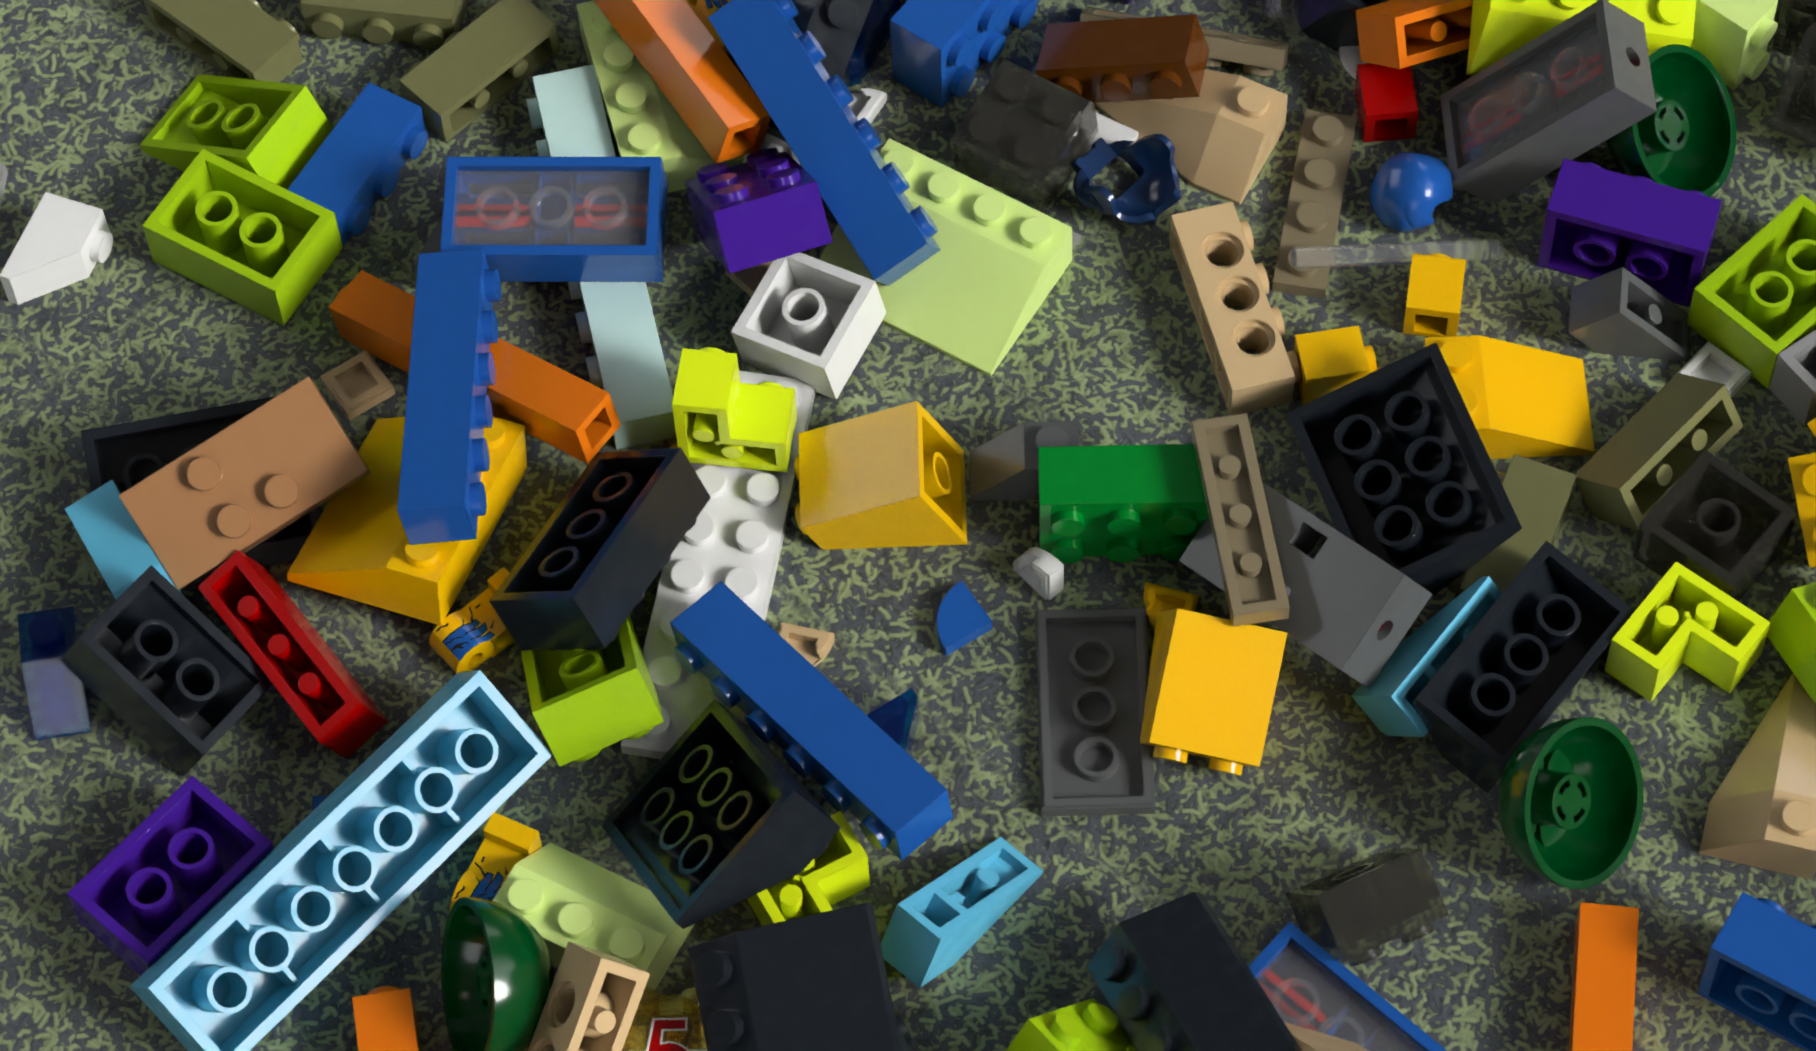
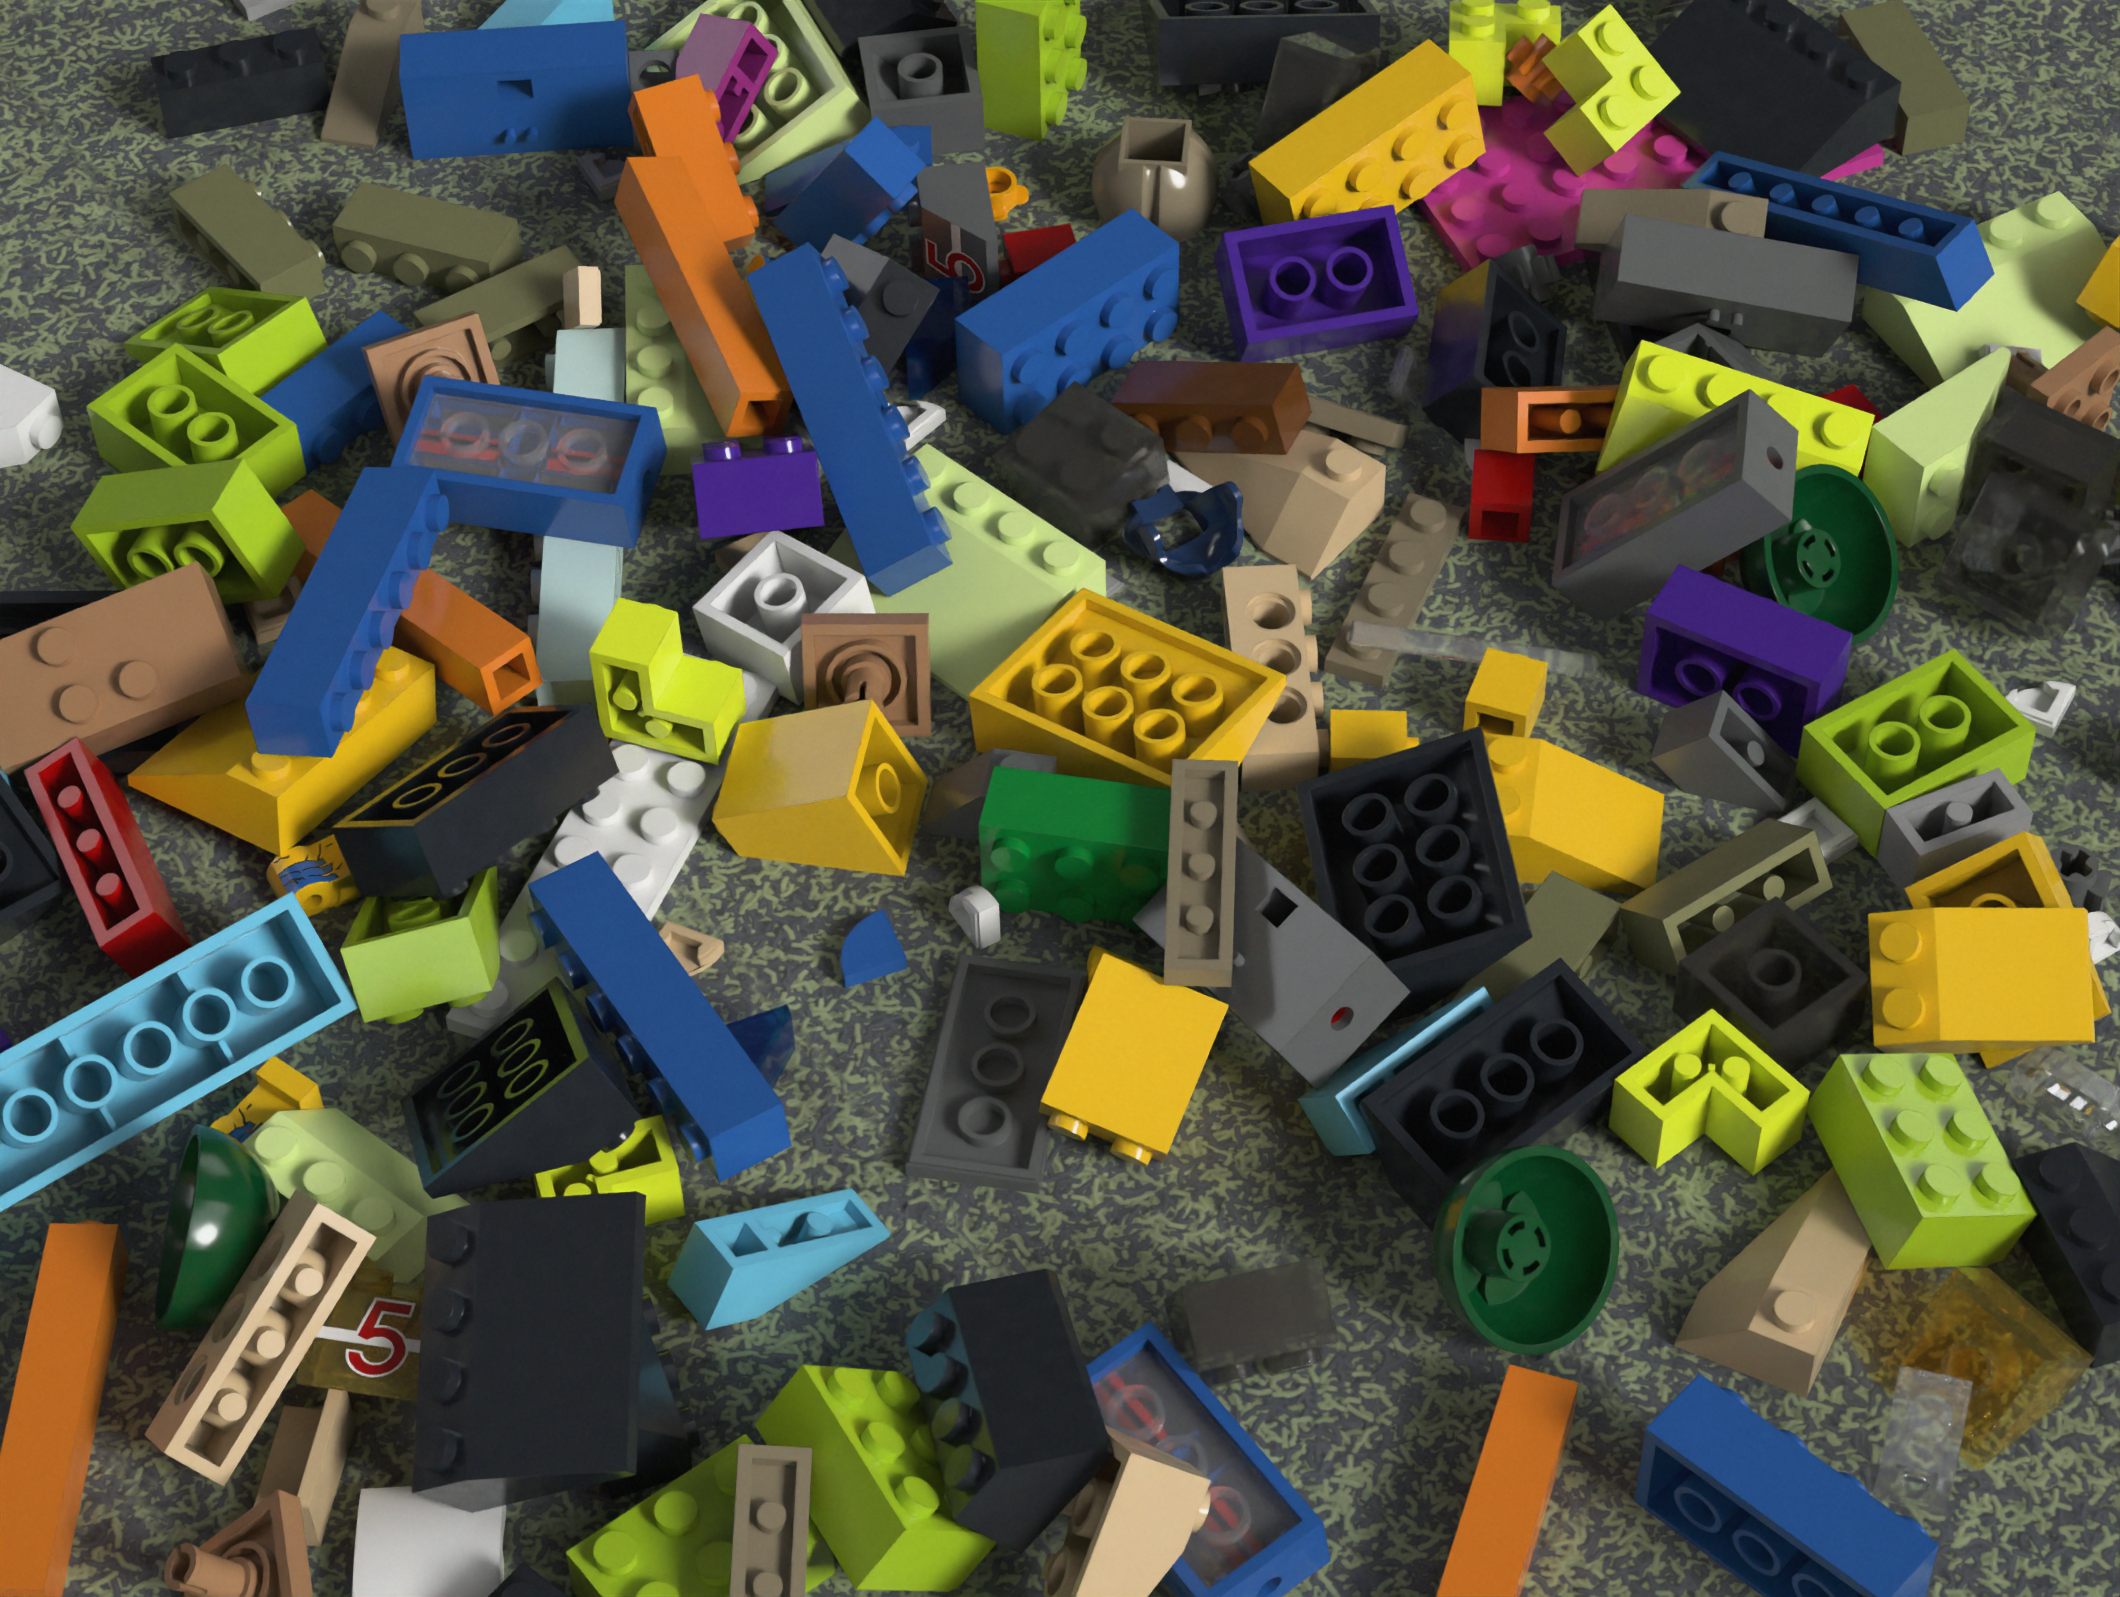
camera: 10 degrees right, 10 degrees down
(274, 335) = (186, 514): none -> lime brick
(429, 132) = (443, 349): none -> medium nougat plate
(549, 45) = (582, 298): none -> tan tile
(896, 364) = (870, 658): none -> medium nougat plate
(1121, 359) = (1122, 695): none -> yellow slope
(1409, 190) = (1502, 585): blue hair -> none

